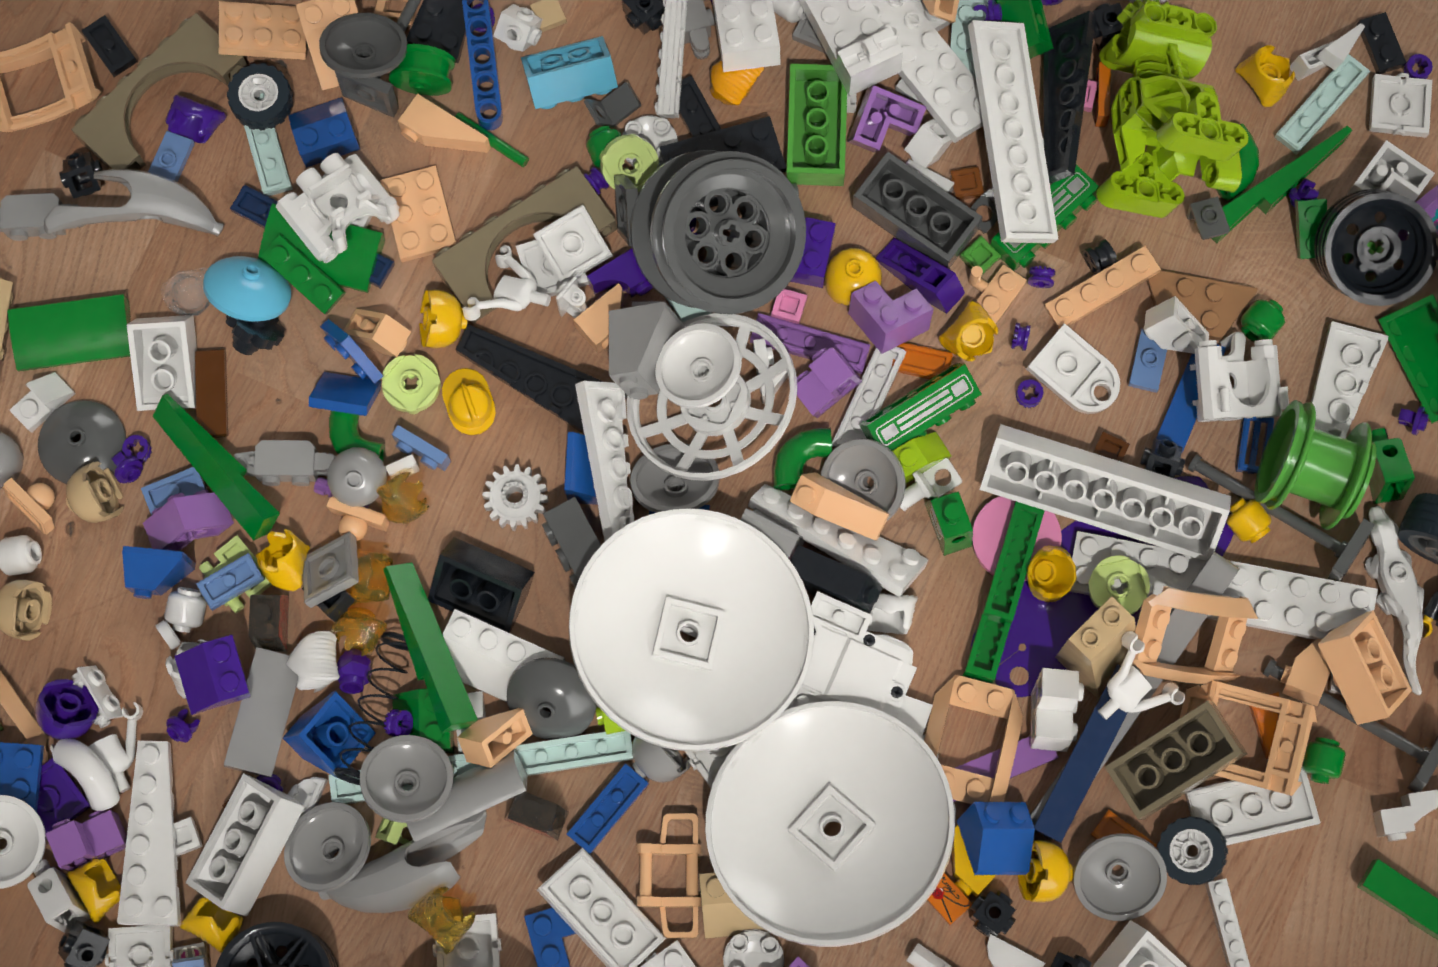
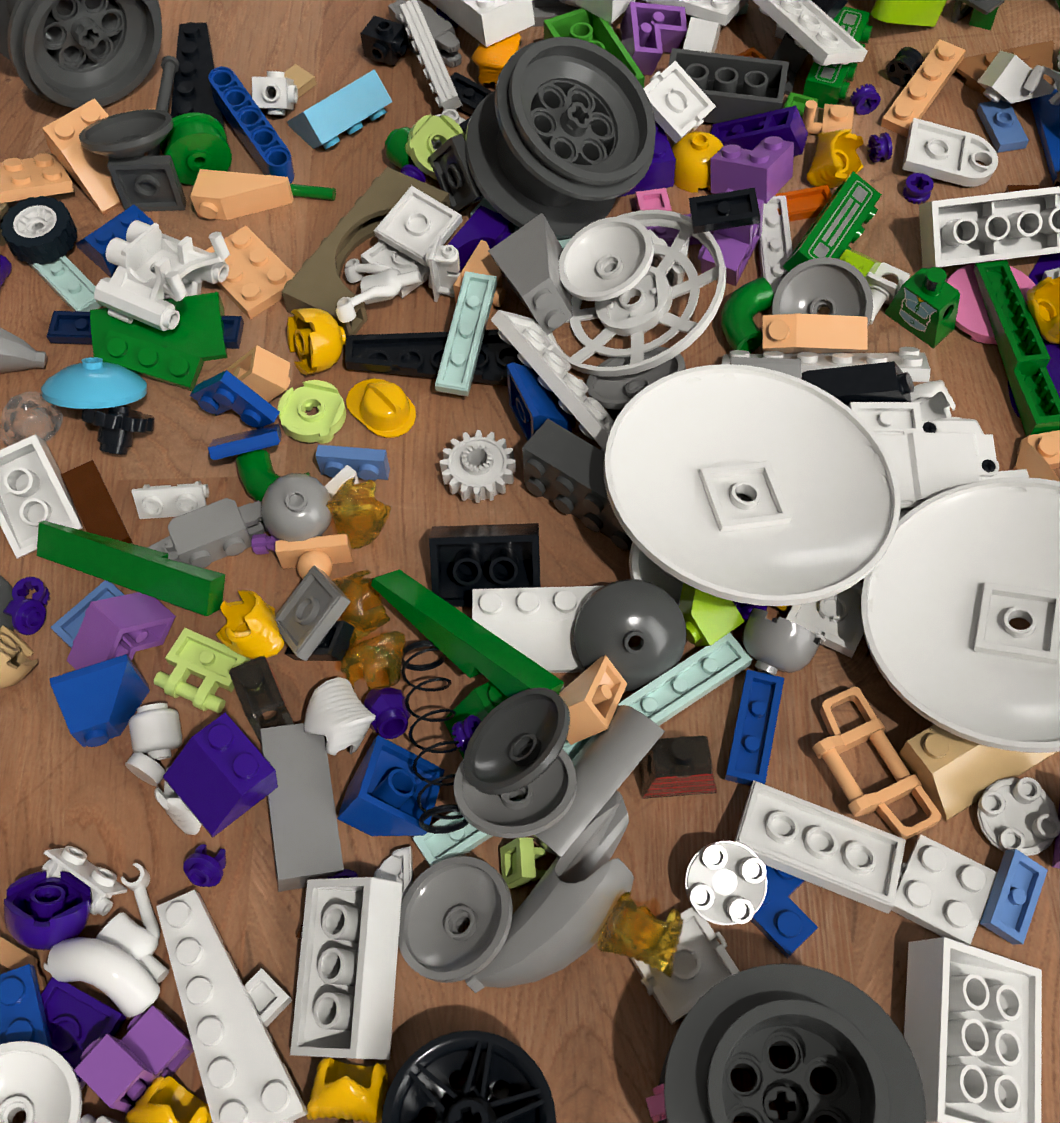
camera: 25 degrees left, 15 degrees down
(230, 581) = (197, 674): medium blue plate -> none
(258, 410) = (169, 501): none -> white hinge
(416, 753) = (517, 741): none -> dark grey dish
(520, 910) = (726, 883): none -> white dish
(561, 372) = (466, 334): none -> light aqua tile
(614, 107) = (400, 114): dark grey bracket -> none
(813, 371) = (724, 210): none -> black plate
(851, 221) = (677, 101): none -> white plate

